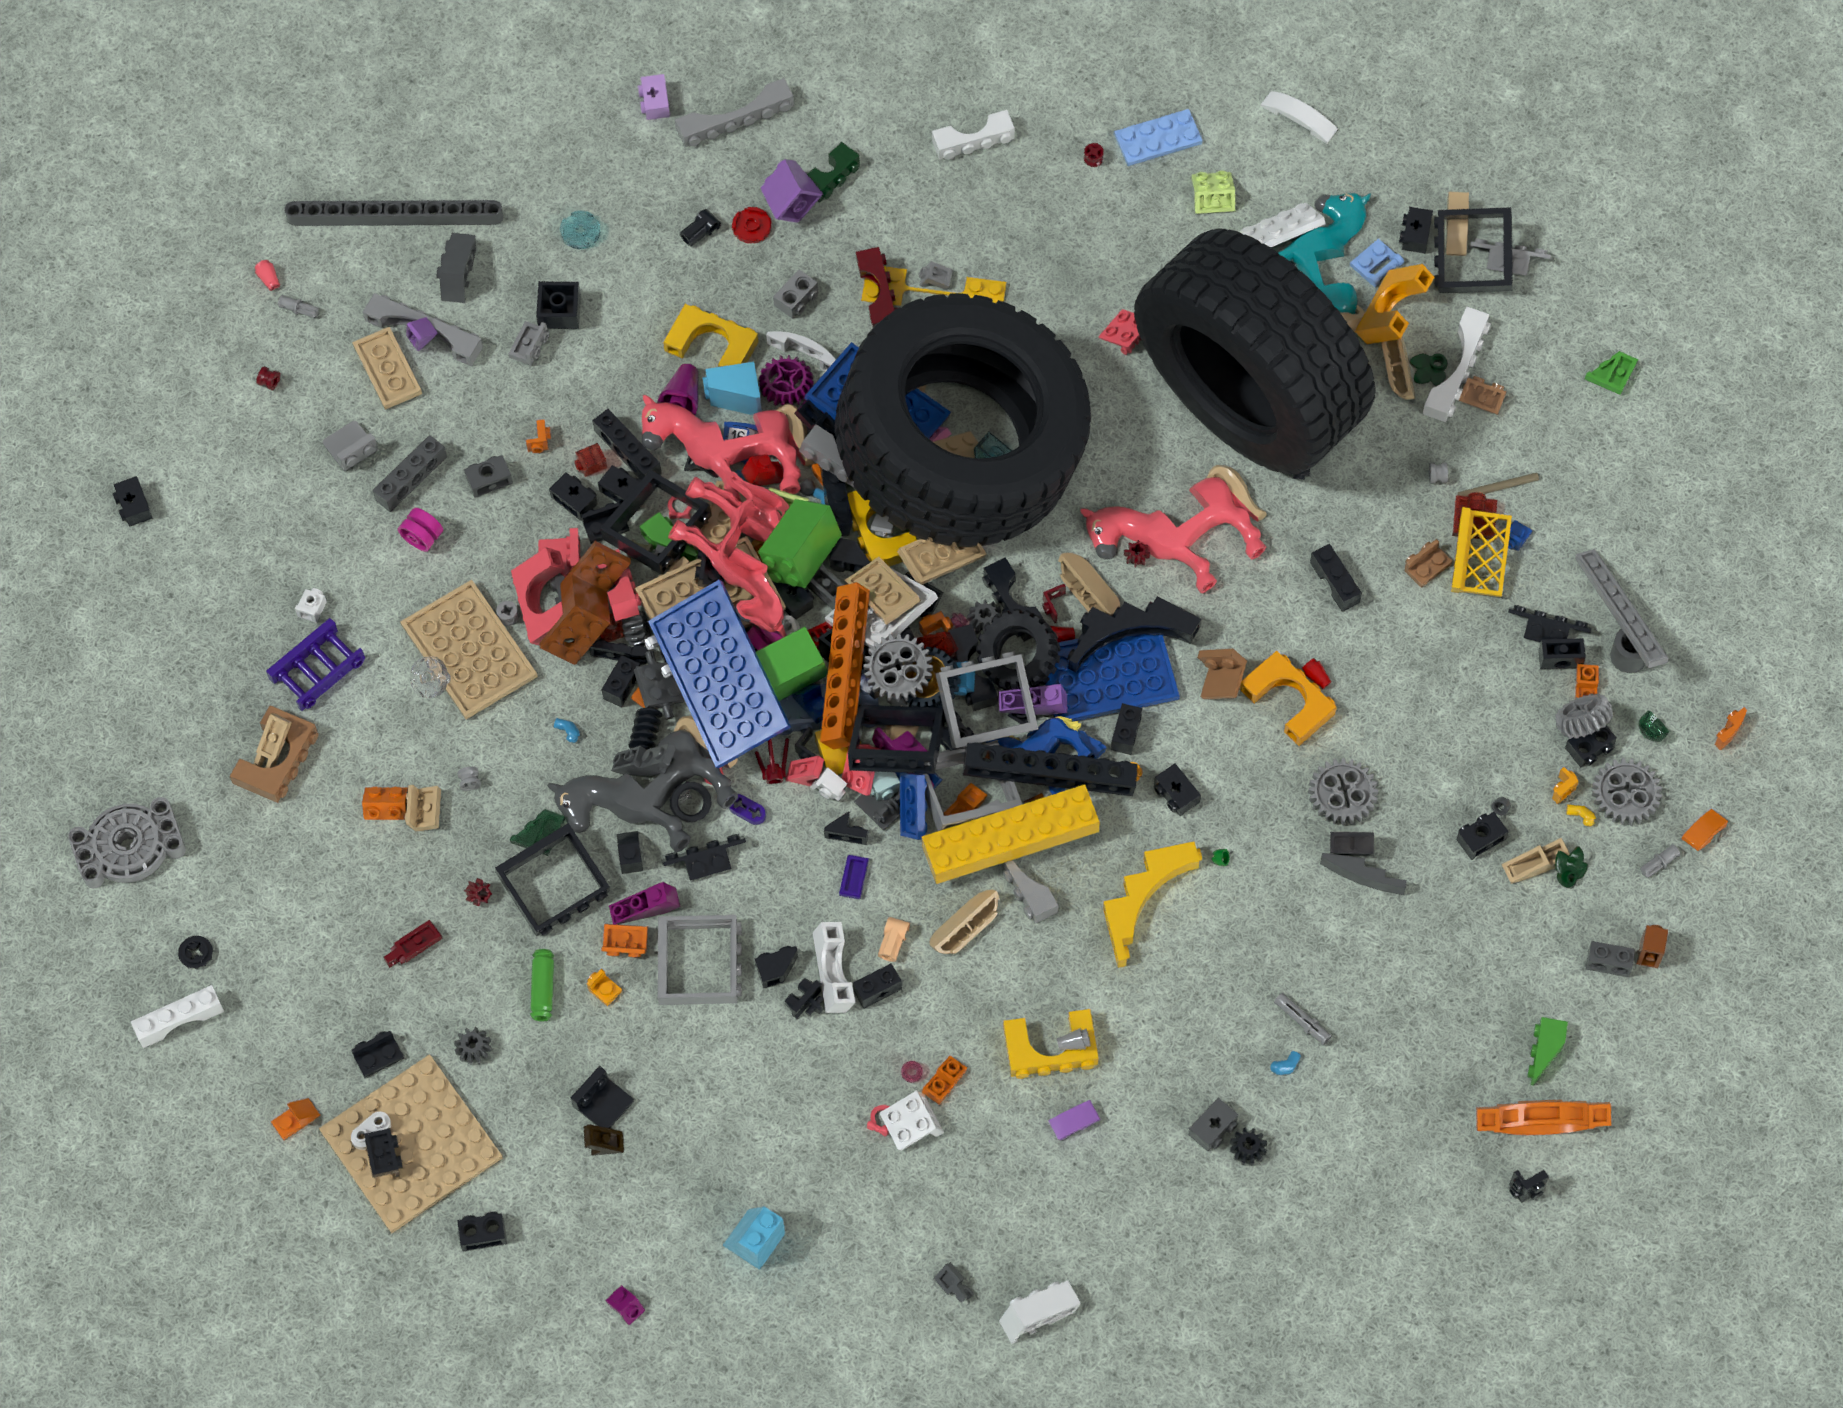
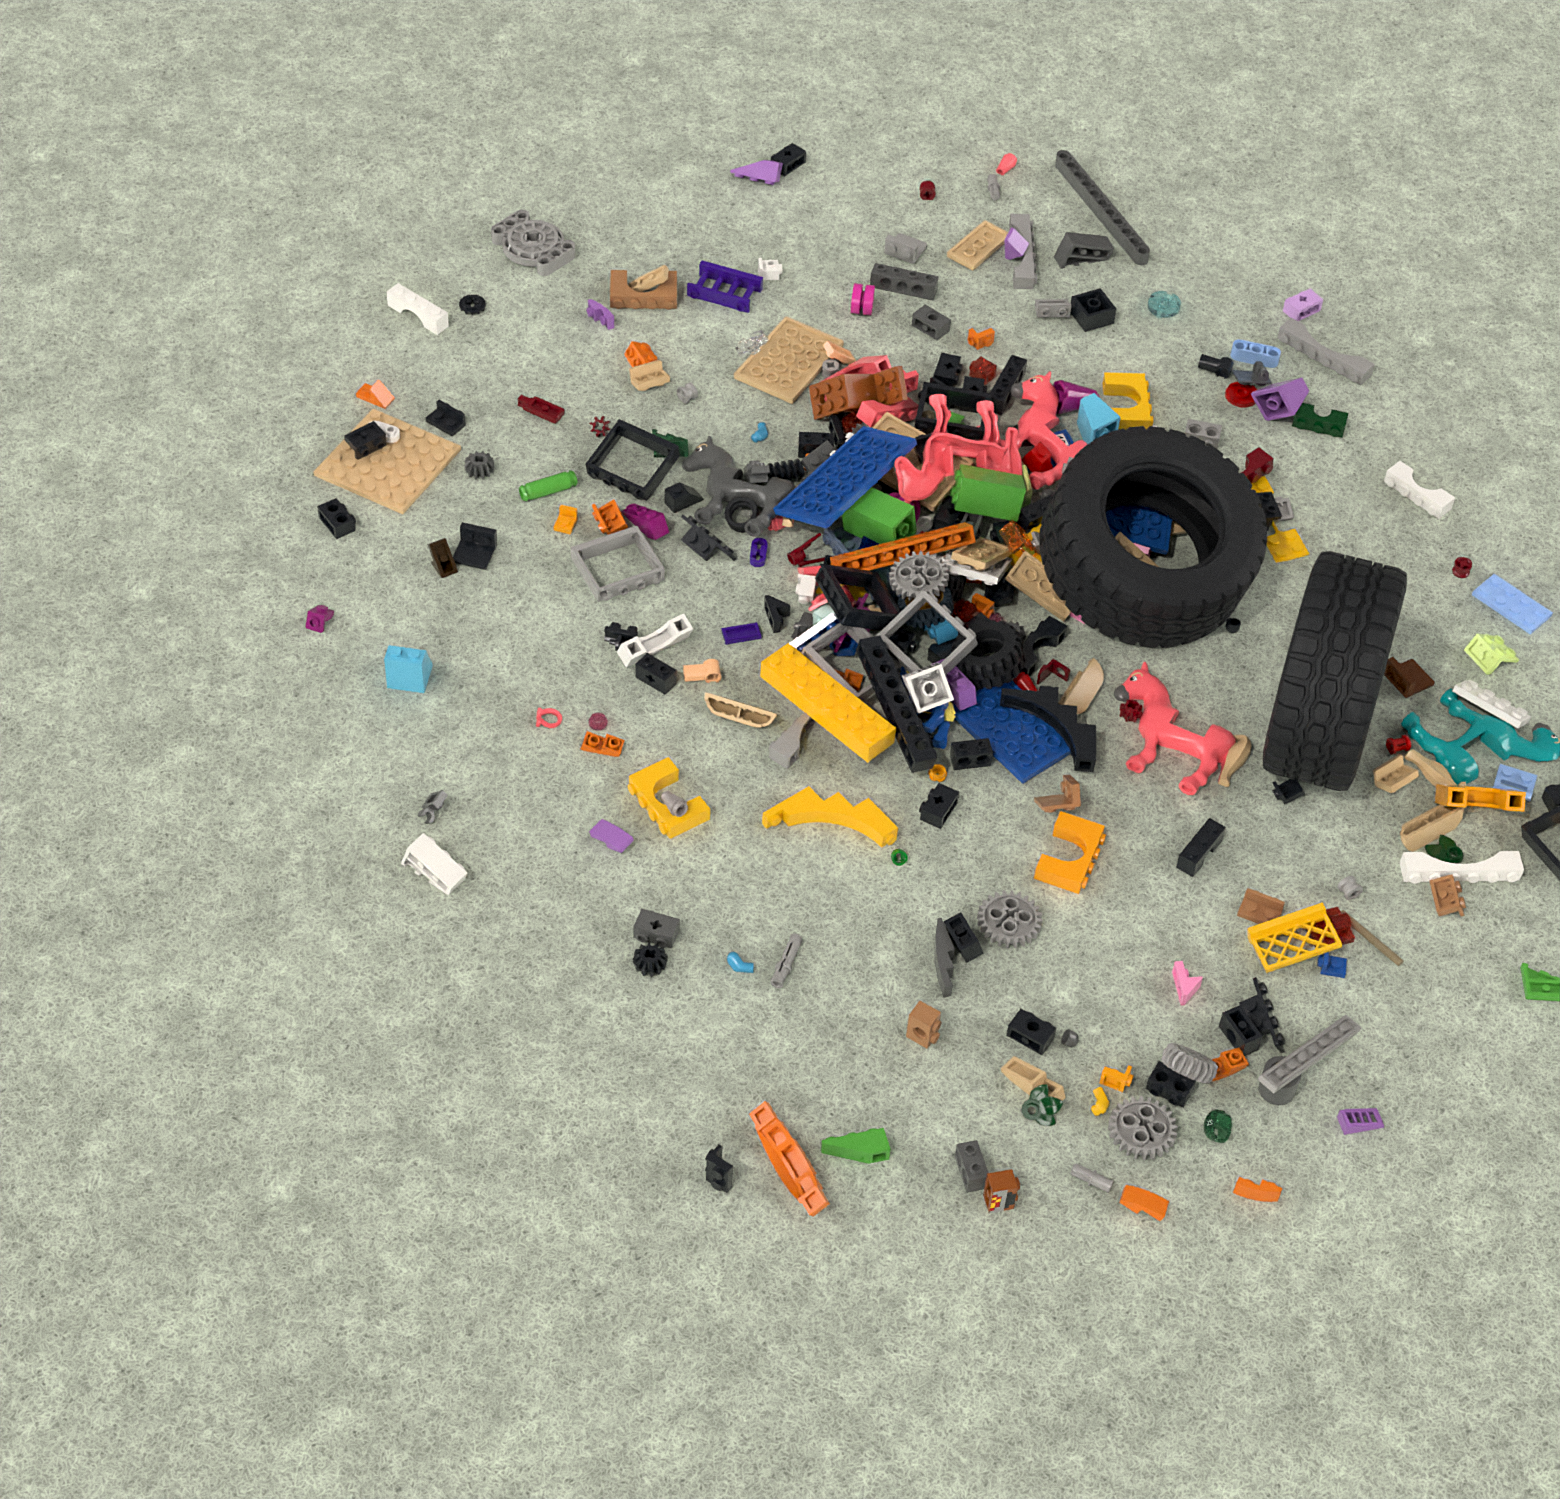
camera: 60 degrees right, 15 degrees down
(138, 539) = (765, 170): none -> medium lavender slope
(284, 820) = (601, 313): none -> medium lavender slope
(493, 593) = (839, 353): none -> light nougat plate
(705, 173) = (1252, 352): none -> light blue beam
(736, 201) = (1258, 376): none -> dark grey hinge
(776, 966) = (638, 609): black slope -> none
(873, 547) = (1017, 538): none -> clear orange bracket
(910, 1120) = (558, 732): white bracket -> none
(931, 285) = (1270, 507): none -> black bracket
(1051, 729) = (928, 687): none -> white brick
(1316, 673) = (1106, 865): red cone -> none
(1441, 927) = (924, 1024): none -> medium nougat brick
(1490, 676) = (1185, 985): none -> bright pink slope
(1690, 618) = (1355, 1127): none -> medium lavender slope

